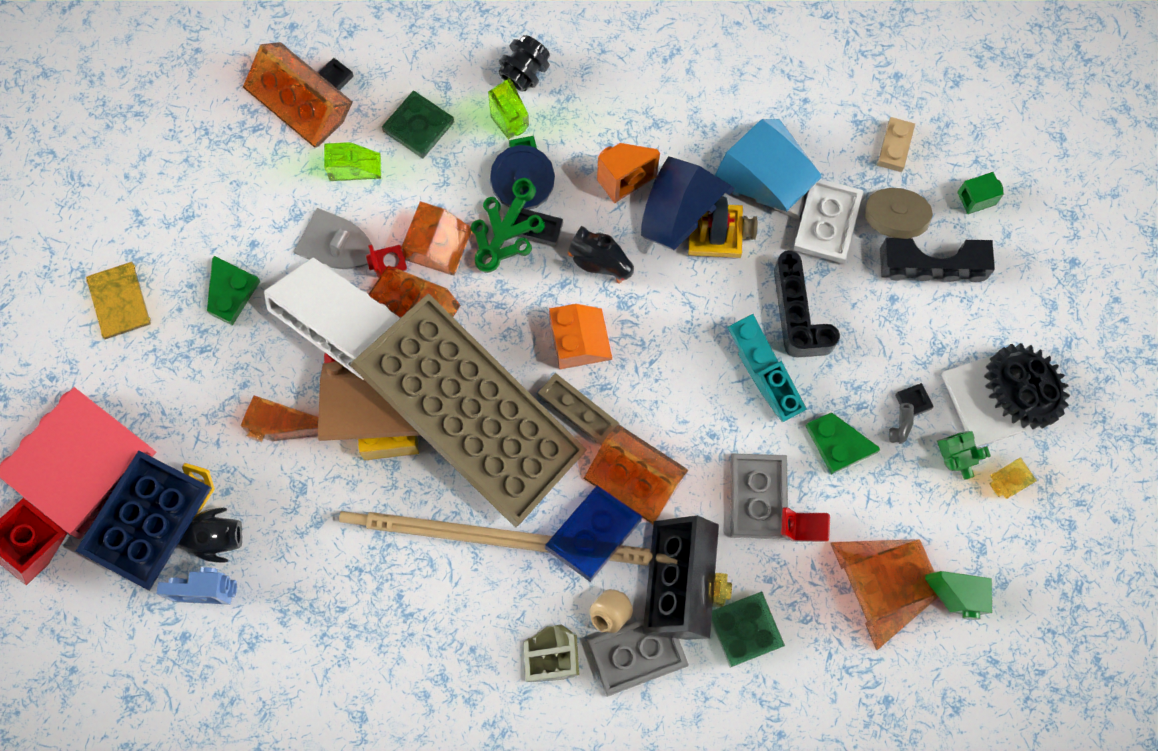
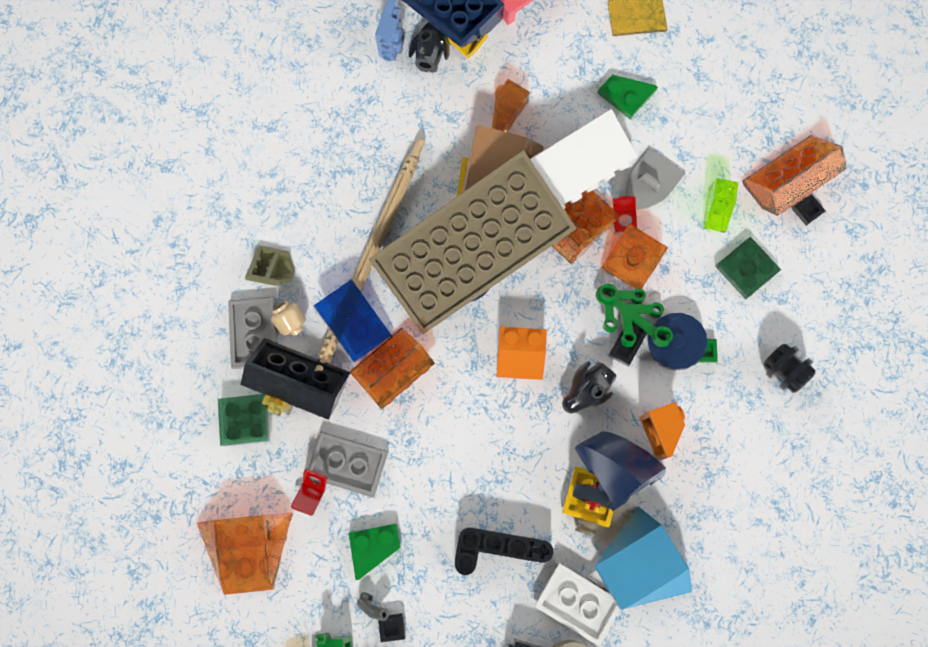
camera: 105 degrees right, 5 degrees up
(508, 109) = (743, 342): clear neon green slope -> none
(577, 408) = (458, 336): dark tan plate -> none
(765, 369) = (451, 502): teal slope -> none
(962, 593) = (213, 609): slope -> none

